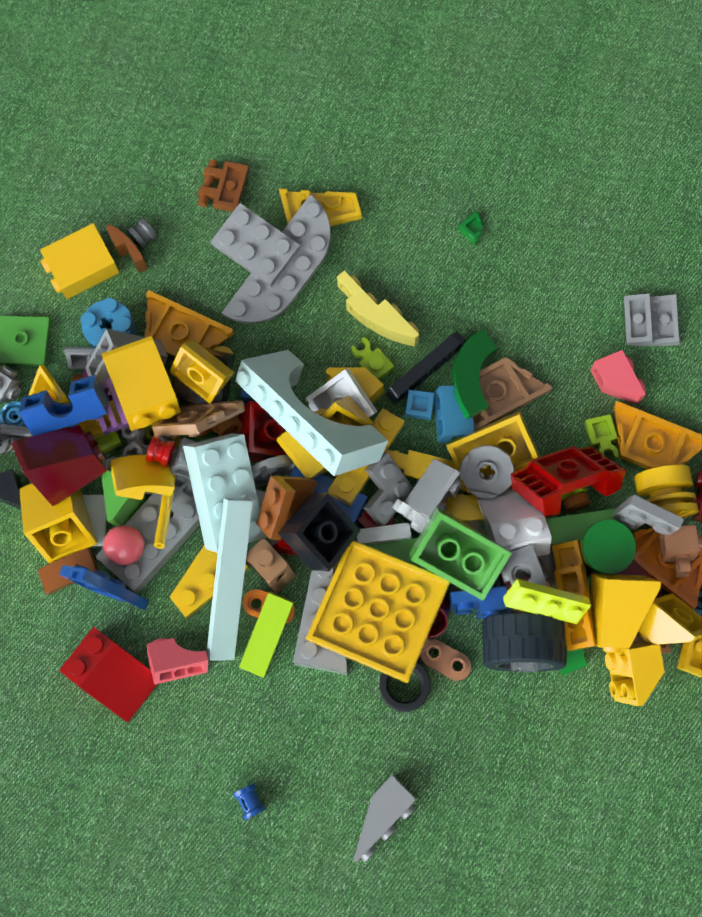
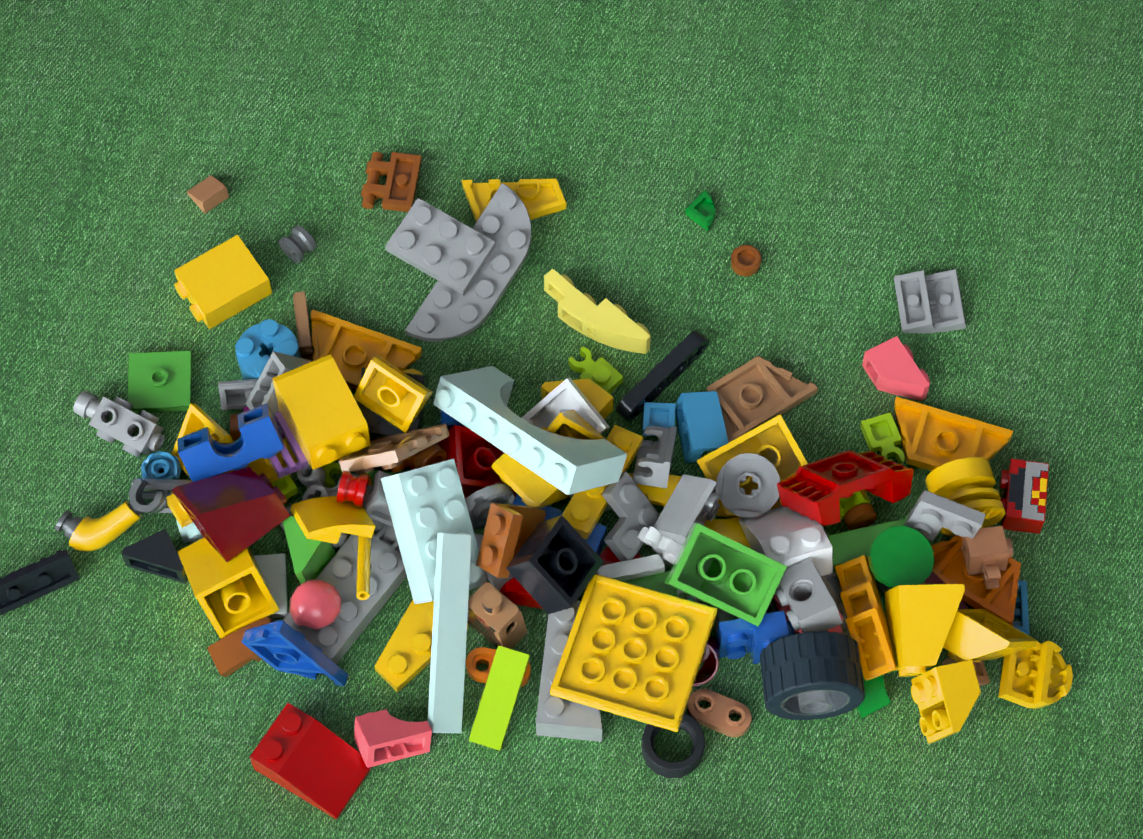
camera: 10 degrees left, 10 degrees down
(76, 185) = (208, 193): none -> nougat slope
(125, 246) = (278, 259): dark orange slope -> none
(139, 303) = (303, 325): none -> medium nougat tile
(413, 439) = (655, 458): none -> light grey hinge
(467, 371) = (712, 377): green tile -> none
(503, 273) = (745, 260): none -> dark orange tile
(546, 601) = (833, 616): neon yellow plate -> none

